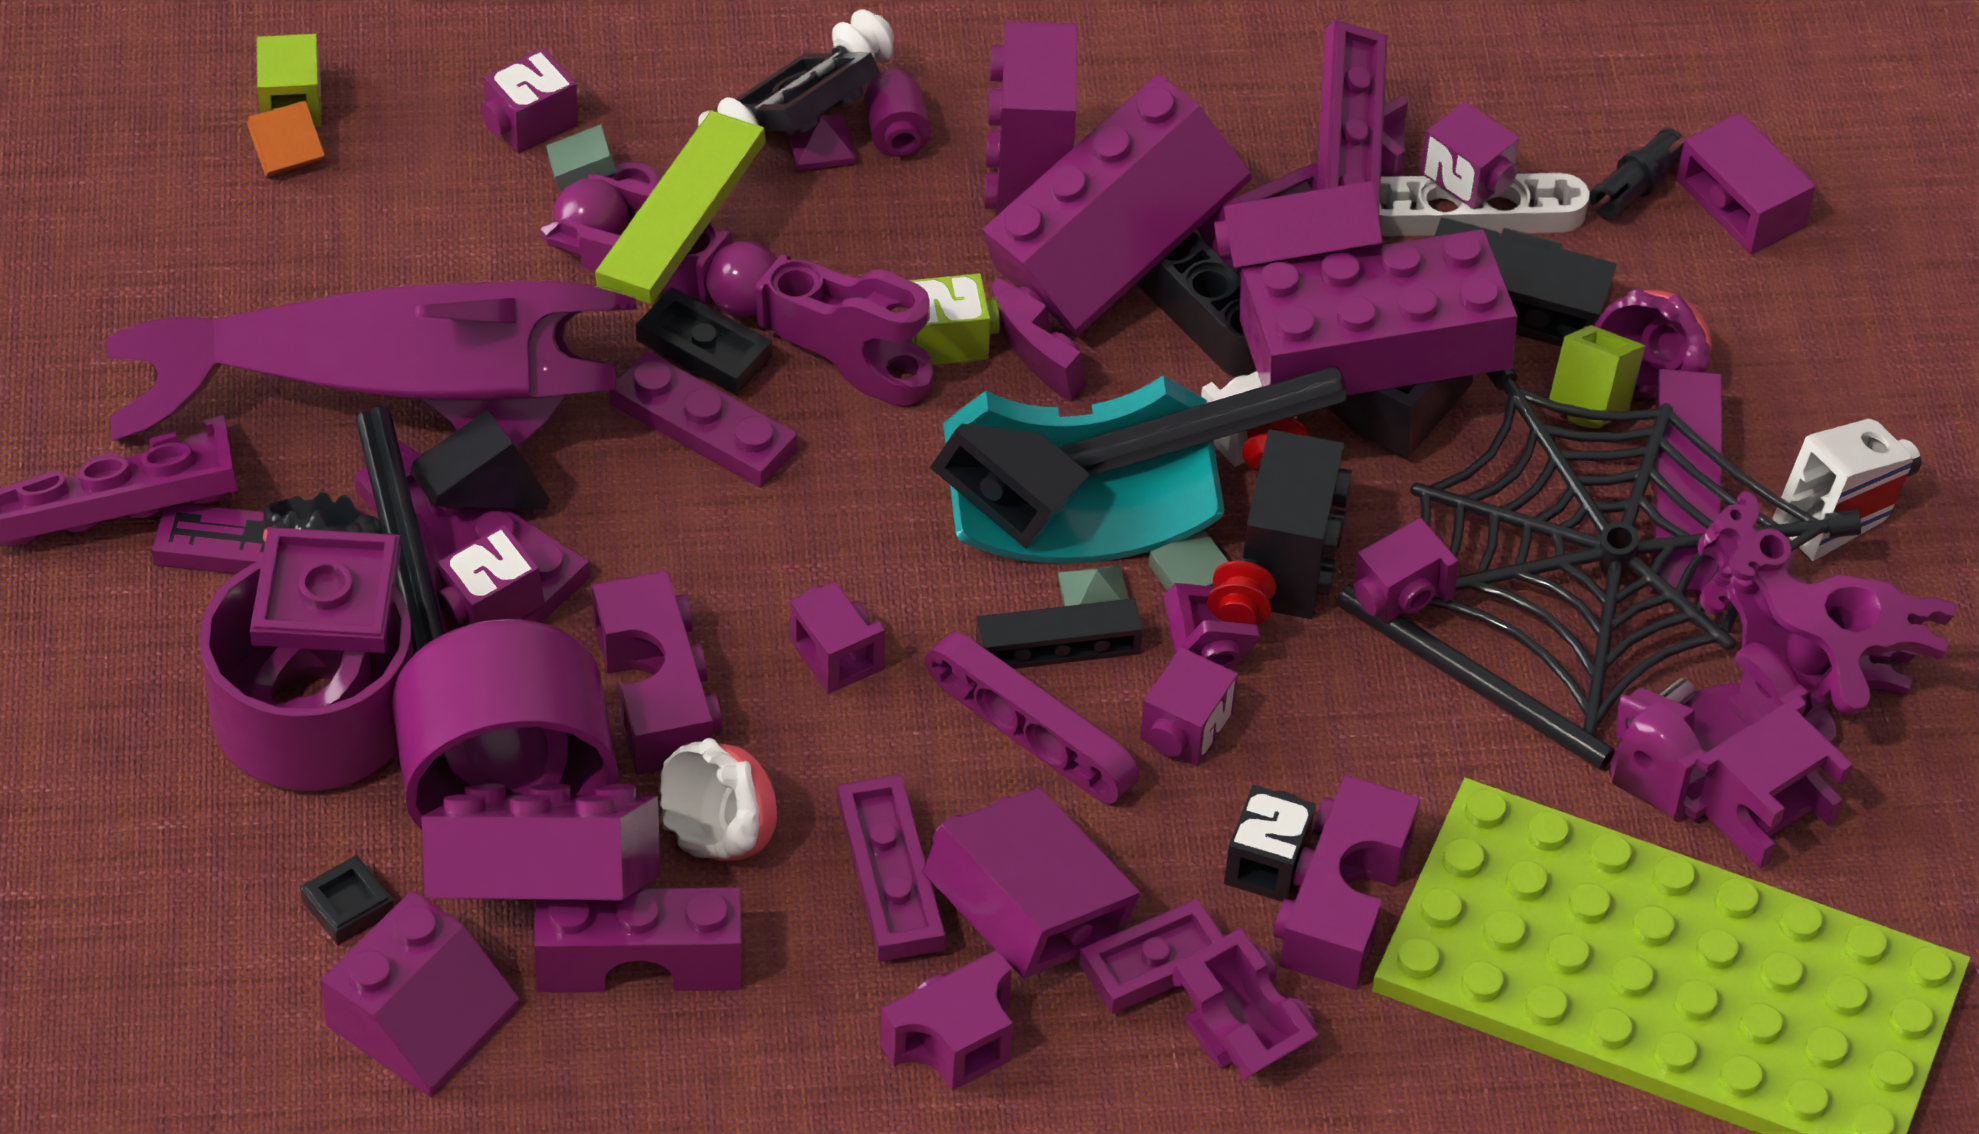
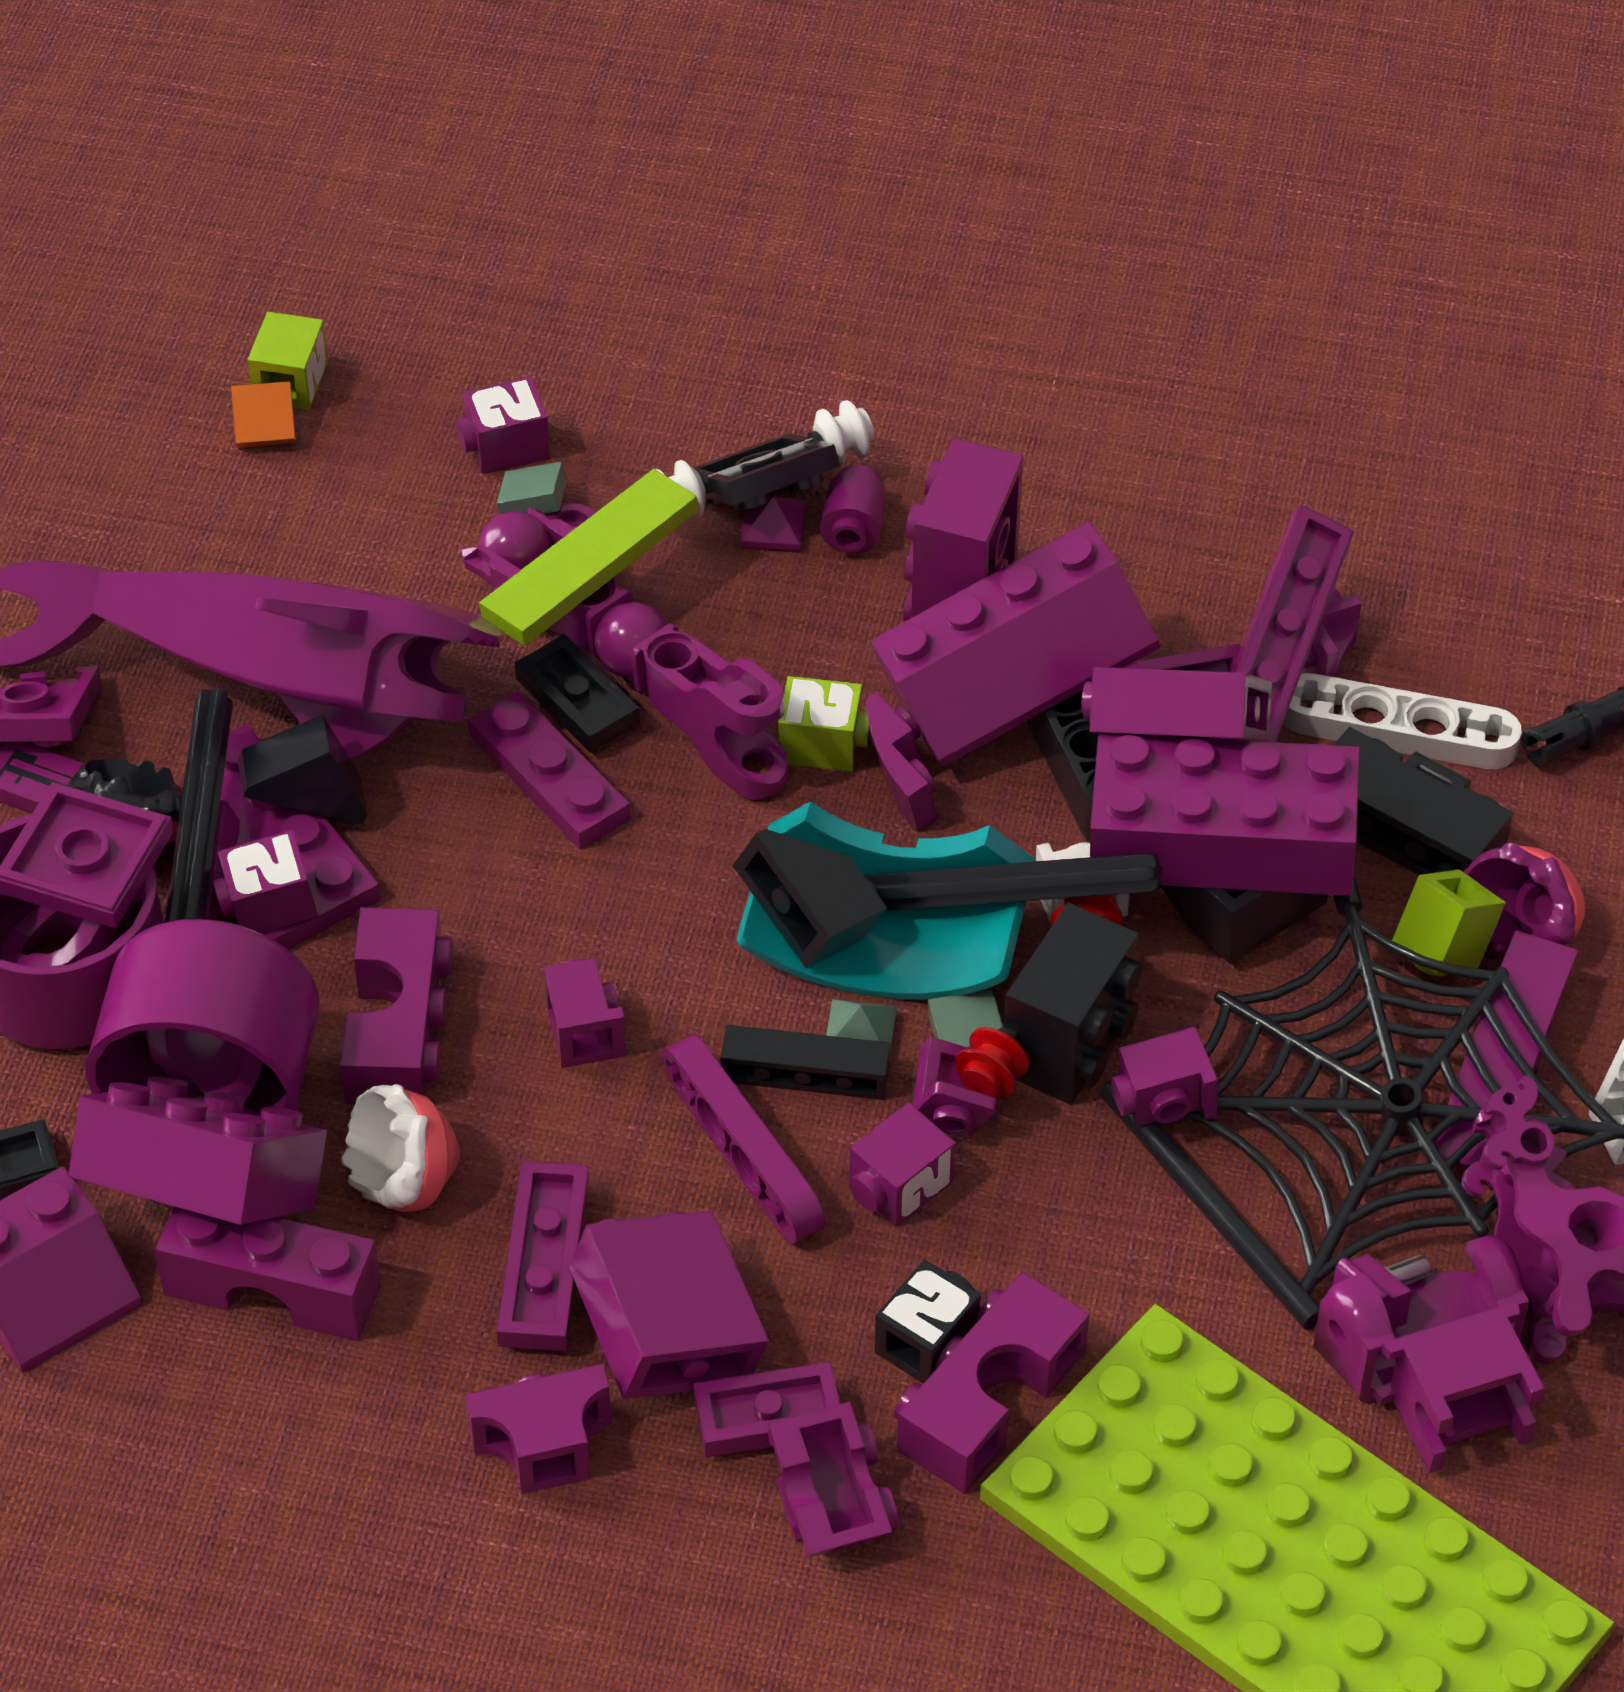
camera: 20 degrees right, 0 degrees up
(1470, 155) = (1403, 670): magenta brick -> none

